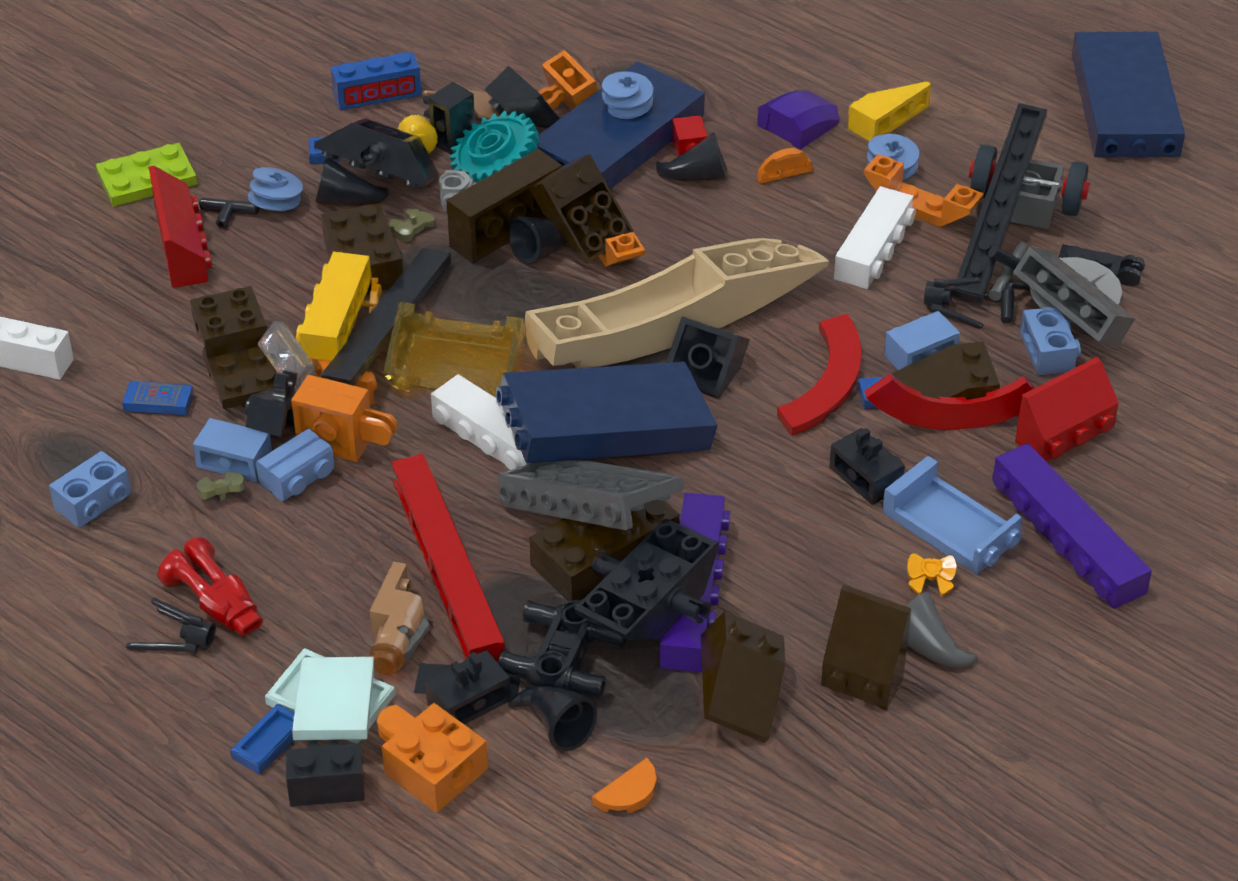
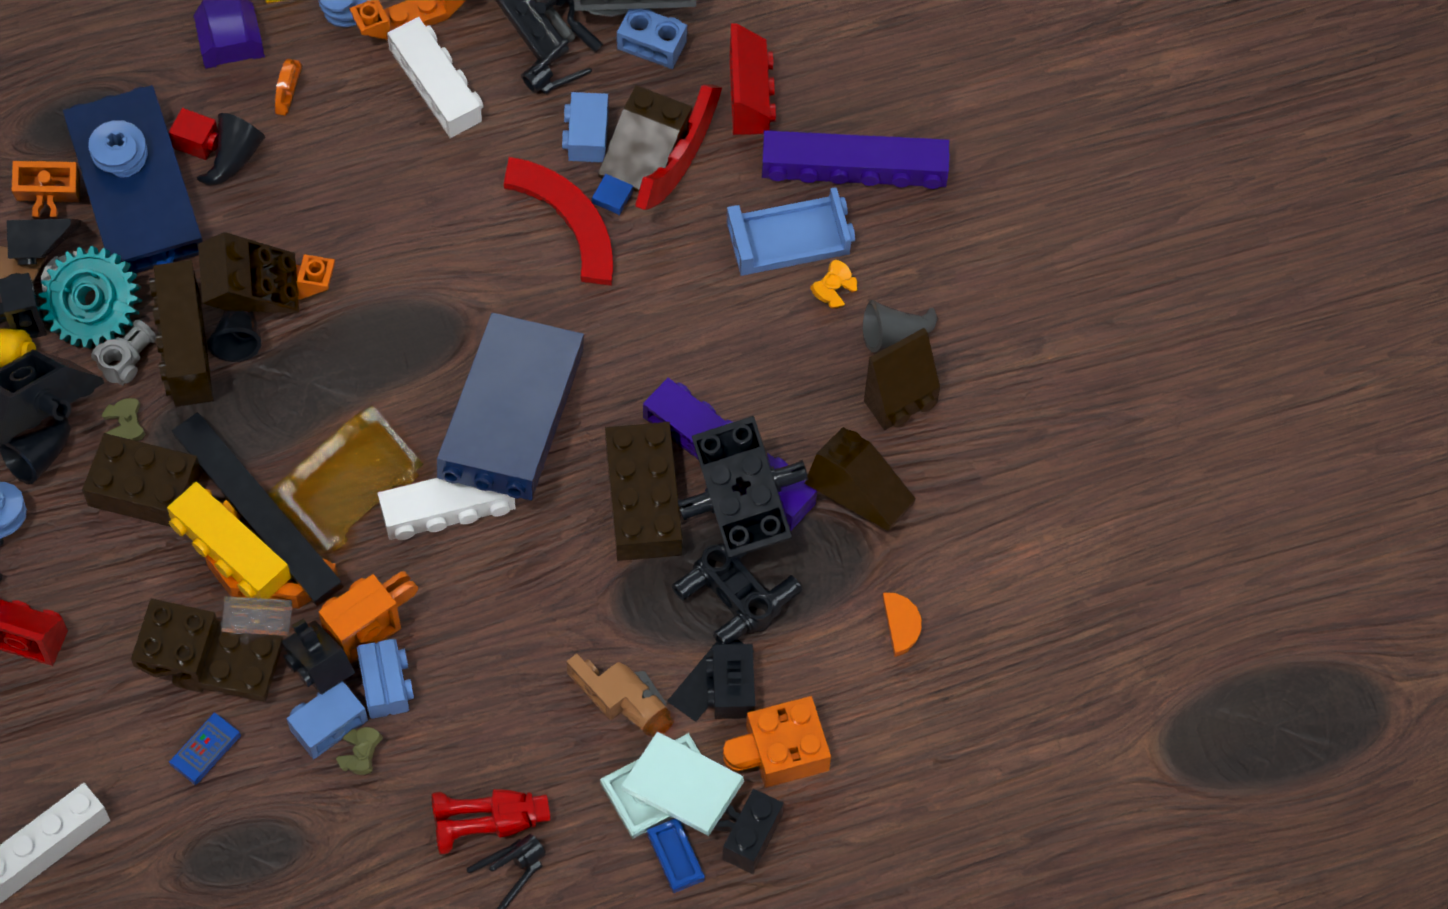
camera: 60 degrees left, 20 degrees up
(90, 489) = (287, 860): medium blue brick -> none
(446, 558) = (580, 620): red tile -> none
(565, 714) = (802, 625): black hat -> none
(585, 490) = (610, 472): dark grey bracket -> none
(643, 318) = (409, 278): tan slope -> none
(709, 354) = (487, 287): black slope -> none
(865, 464) = (695, 255): black brick -> none

